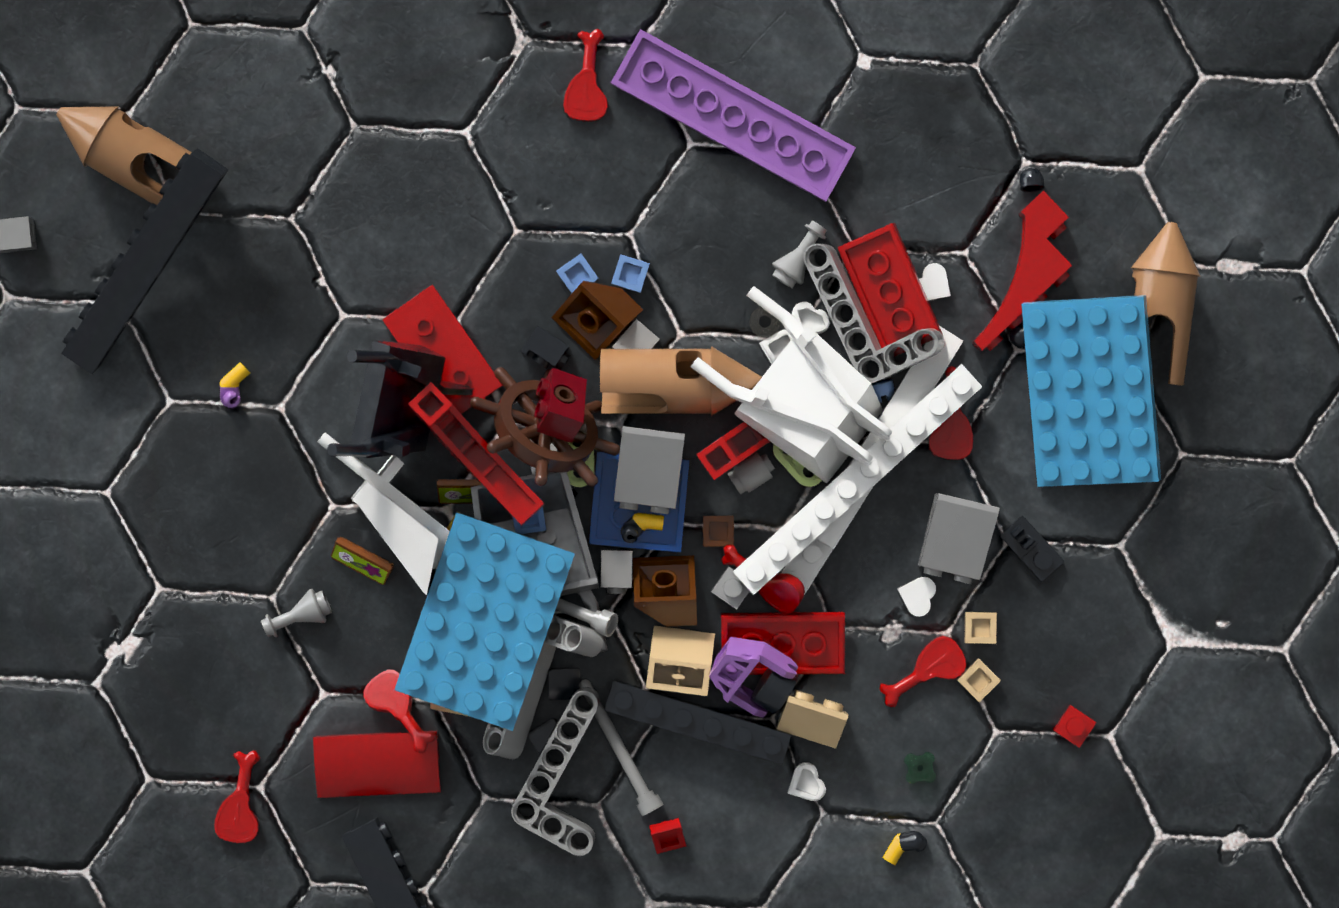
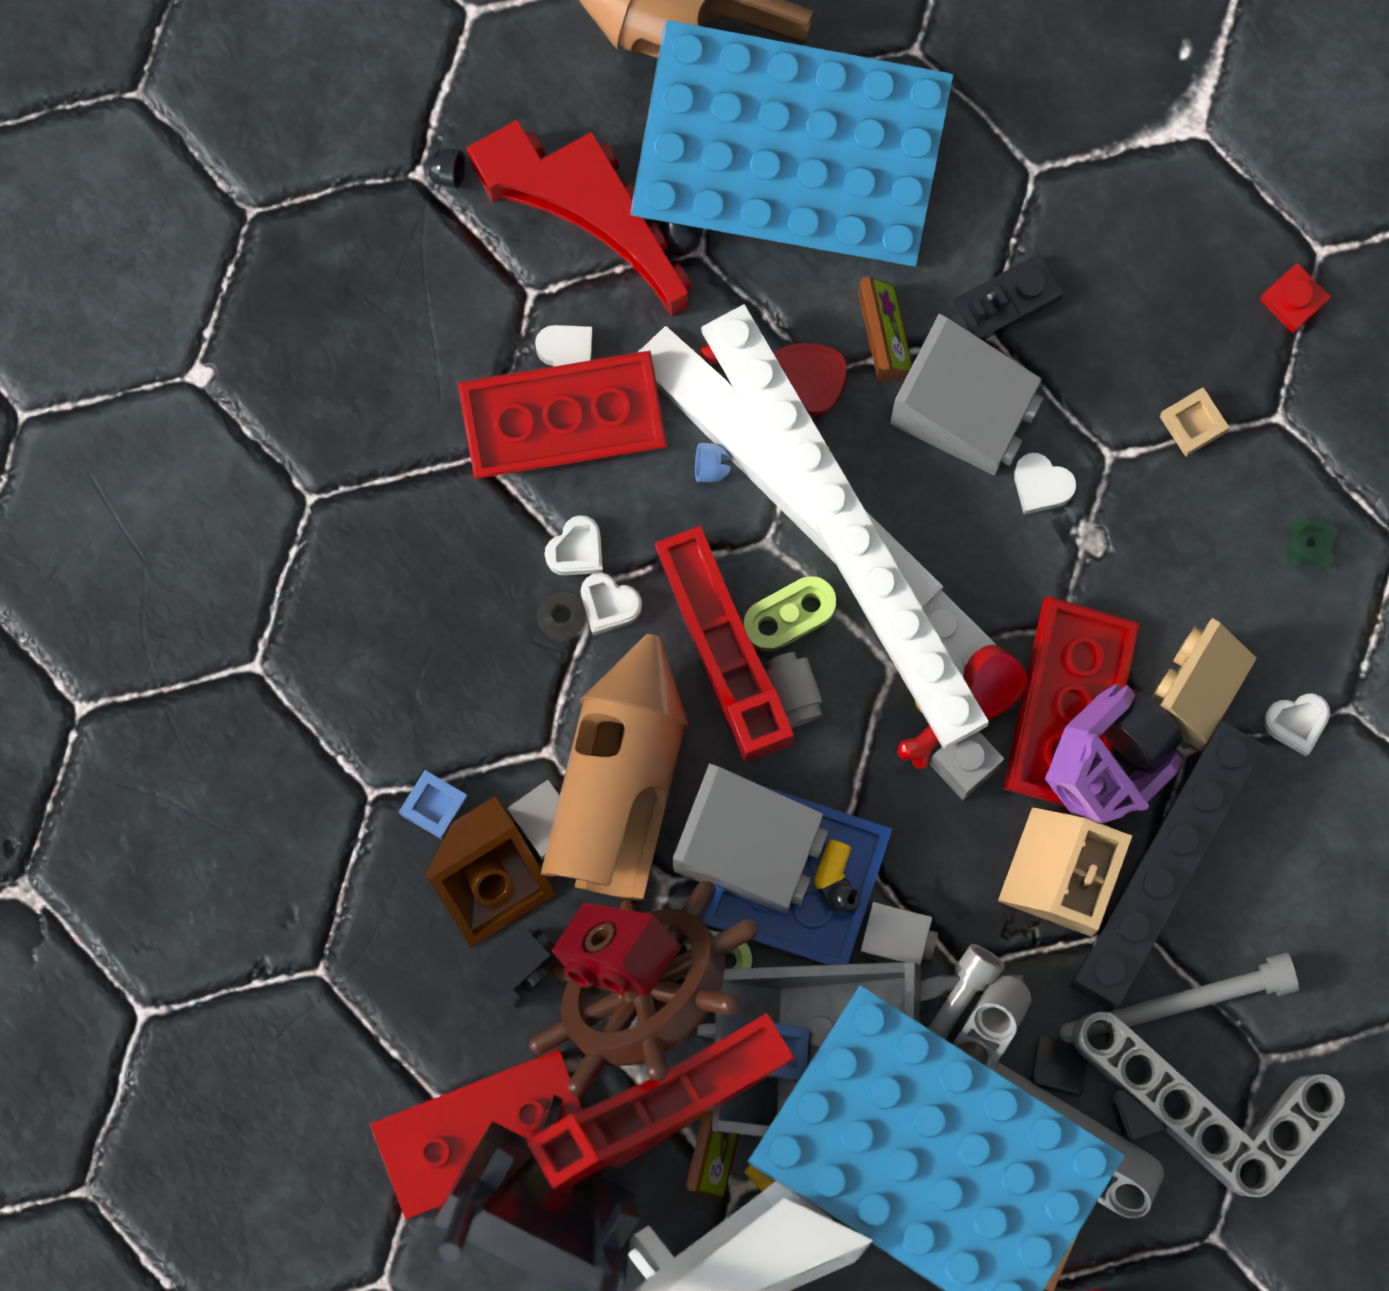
camera: 80 degrees left, 10 degrees down
(576, 272) = (411, 889): medium blue plate -> none
(583, 97) = (136, 814): red piece -> none
(666, 589) = (946, 863): reddish brown slope -> none
(667, 835) = (1338, 956): red plate -> none
(718, 531) = (871, 764): reddish brown plate -> none
(733, 115) = (227, 589): medium lavender plate -> none
(791, 267) = (487, 554): light grey piece -> none
(807, 399) = (700, 568): white piece -> none
(859, 323) = (601, 469): light grey beam -> none
(938, 659) = (1147, 477): red piece -> none
(980, 627) = (1113, 400): tan plate -> none
(992, 477) = (884, 329): none -> slope

